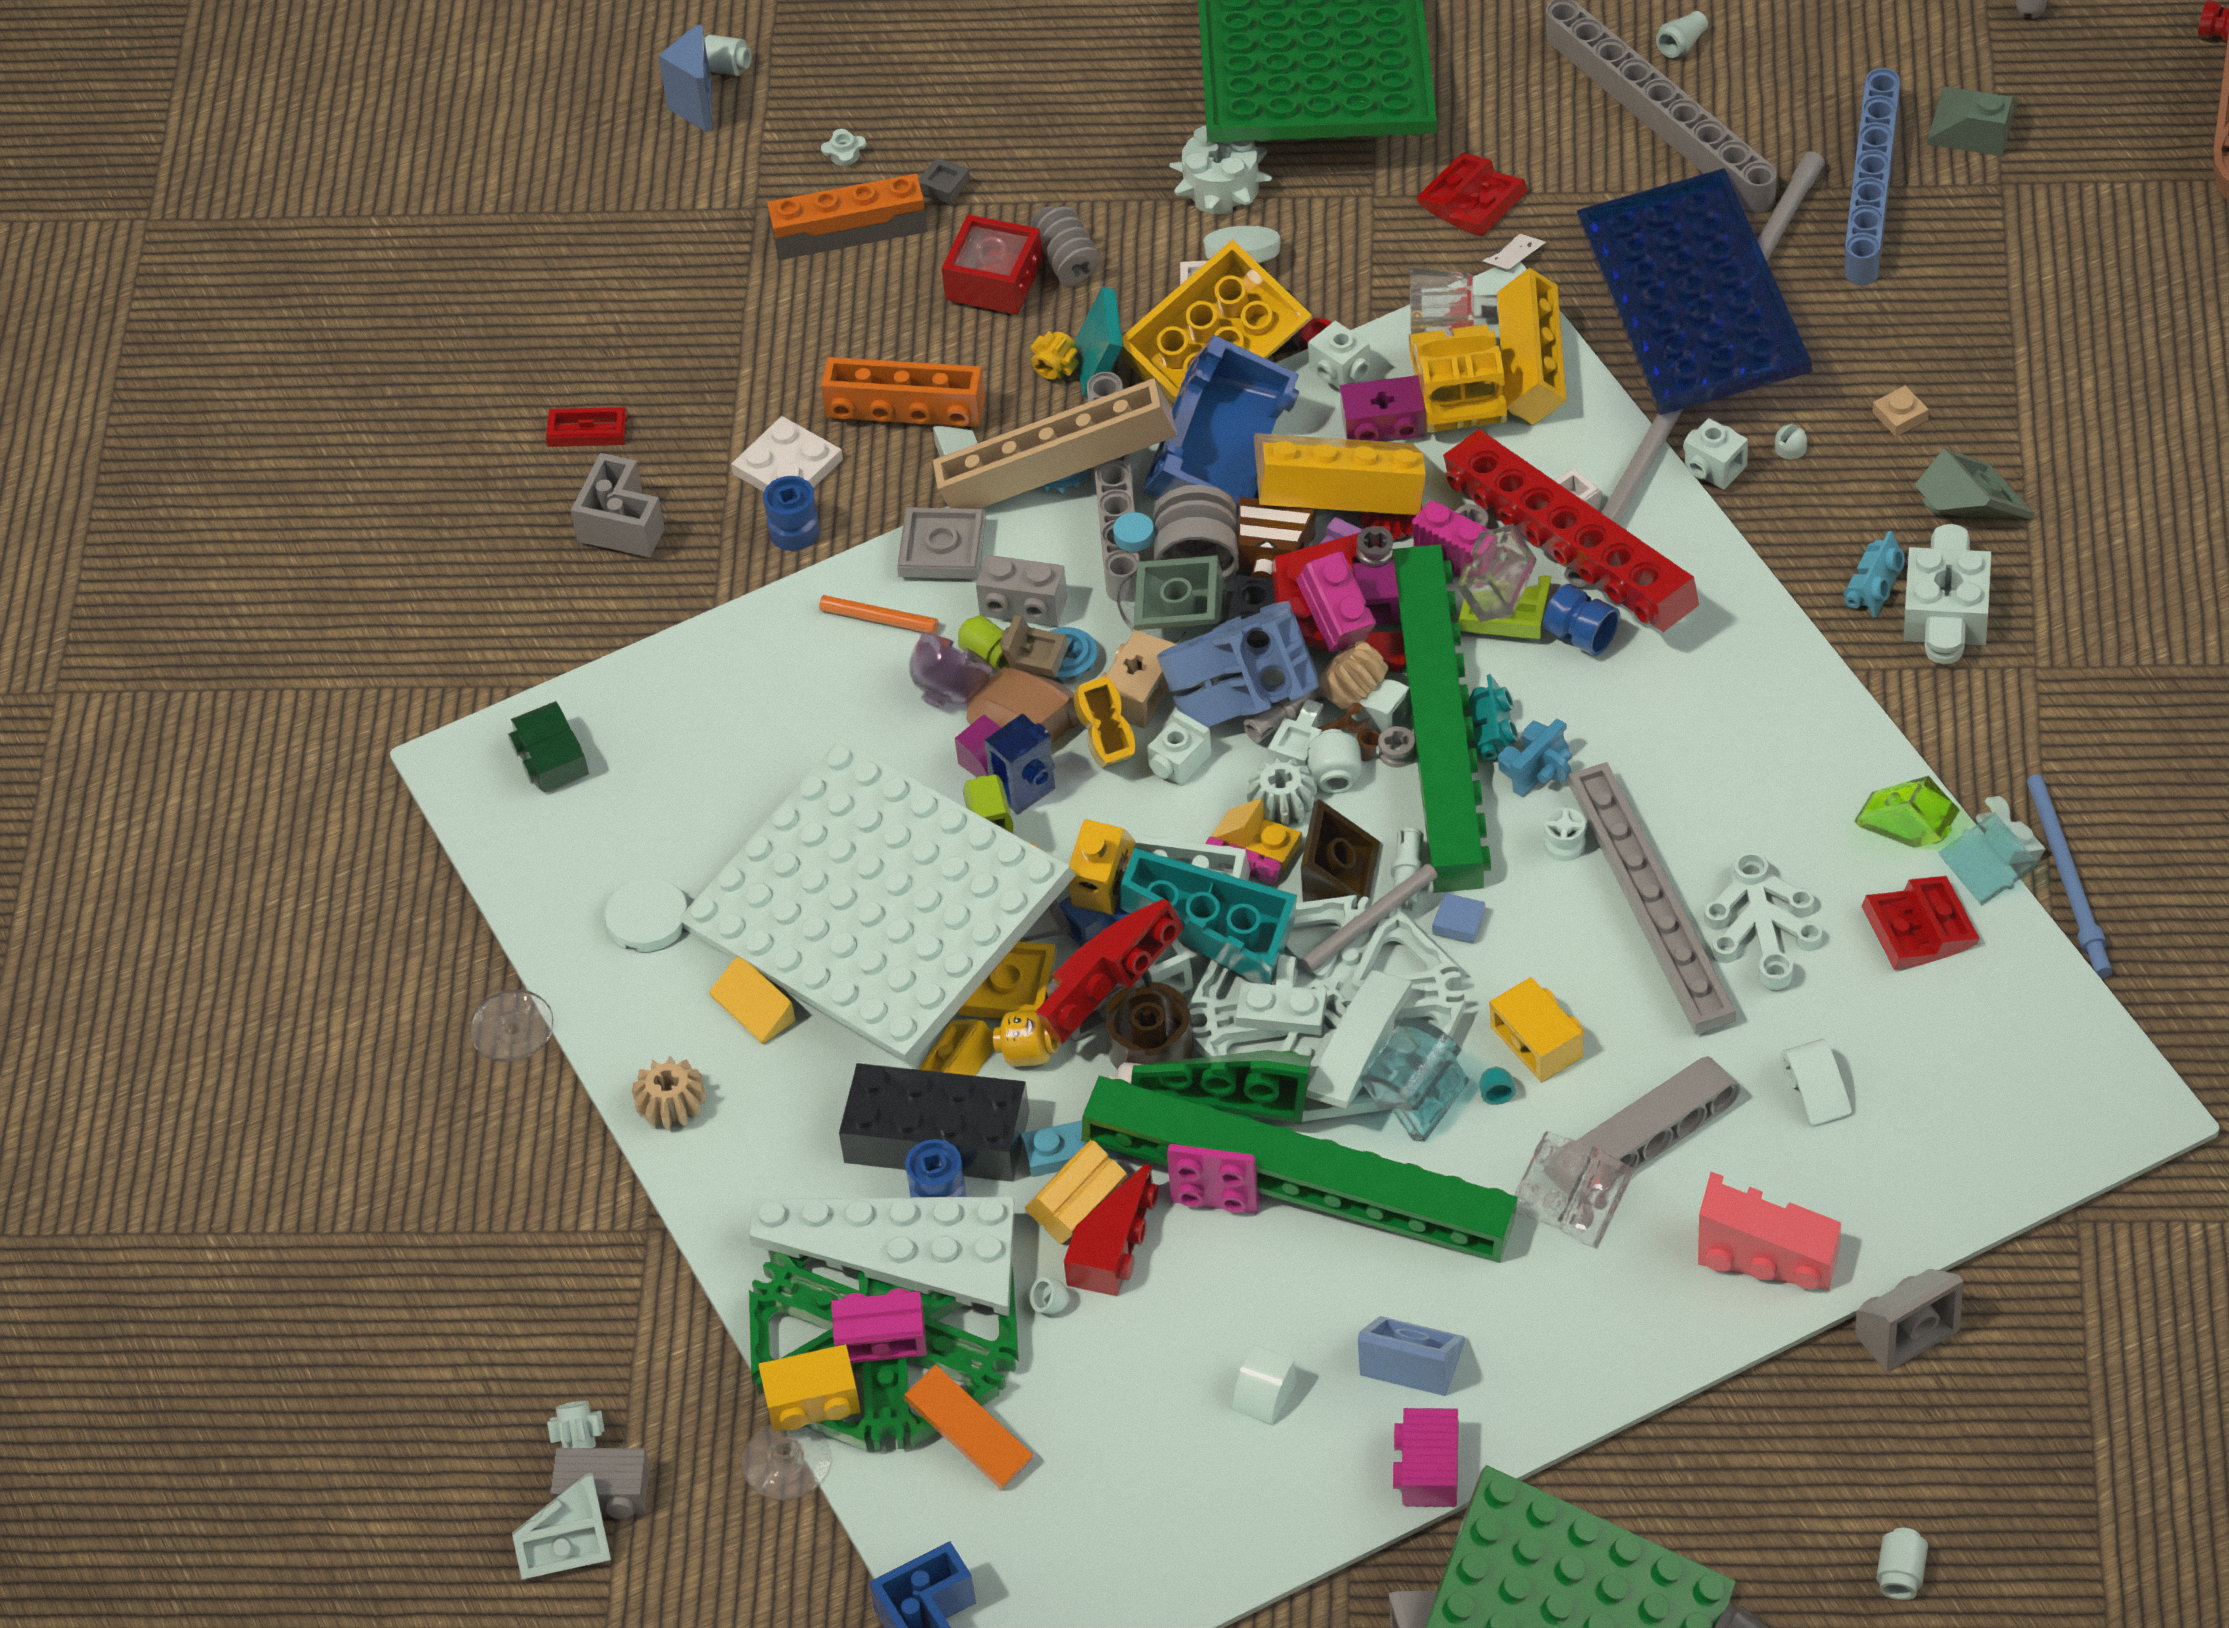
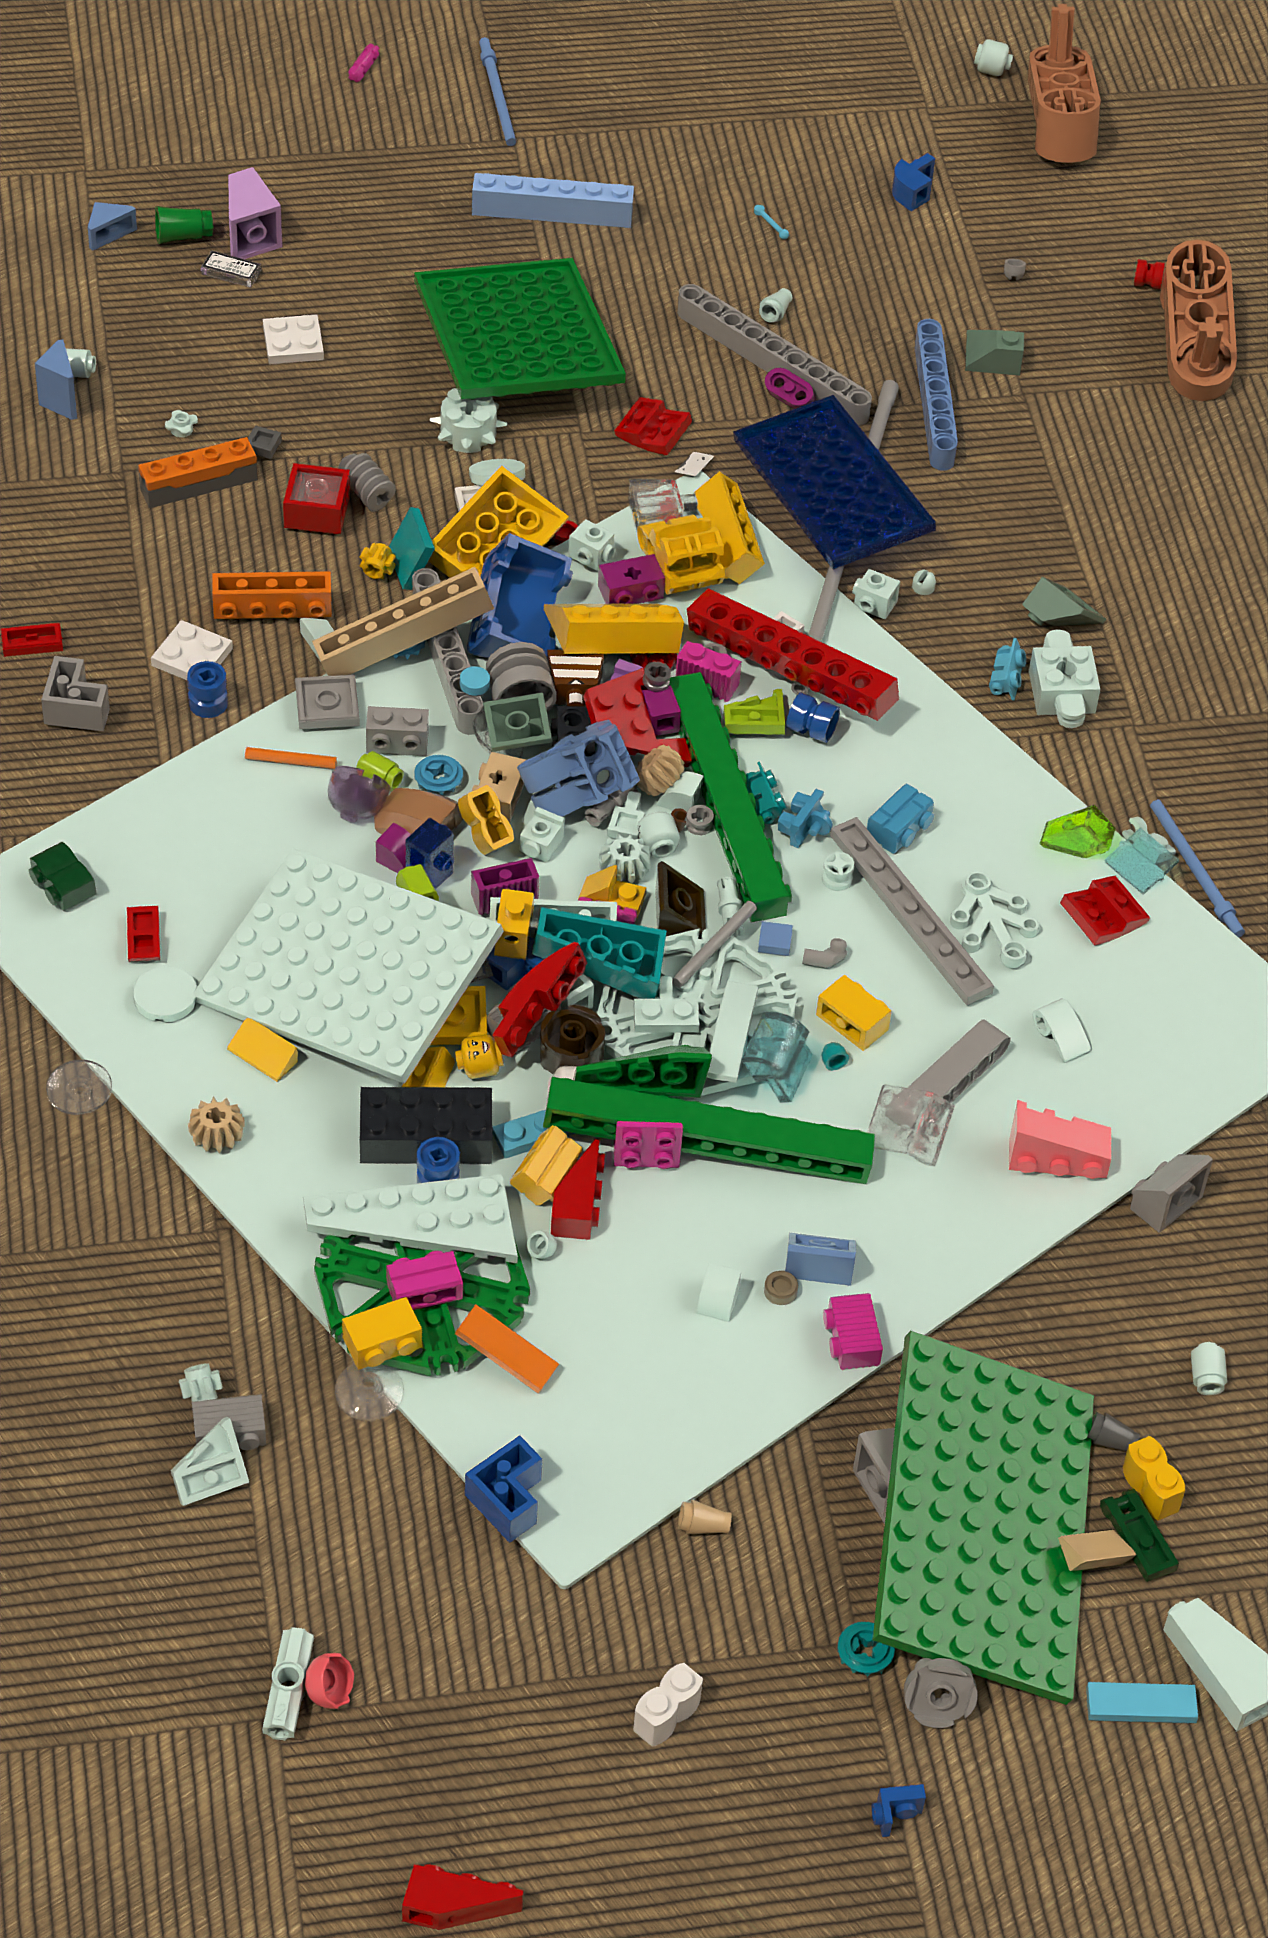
camera: 20 degrees left, 0 degrees up
(636, 832) = (143, 933): none -> red slope
(1017, 40) = (293, 339): none -> white plate
(1033, 648) = (419, 772): dark tan bracket -> none
(1116, 804) = (490, 881): none -> magenta brick
(1335, 601) = (640, 717): dark pink brick -> none
(1348, 722) = (661, 803): reddish brown hand -> none
(1350, 1388) = (781, 1287): none -> dark tan tile
(1498, 573) = (749, 688): clear brick -> none
(1523, 951) = (827, 957): none -> light grey arm
(1667, 770) = (901, 818): none -> dark azure brick
(1672, 157) = (791, 390): none -> magenta plate
(1900, 411) = (995, 555): tan plate -> none

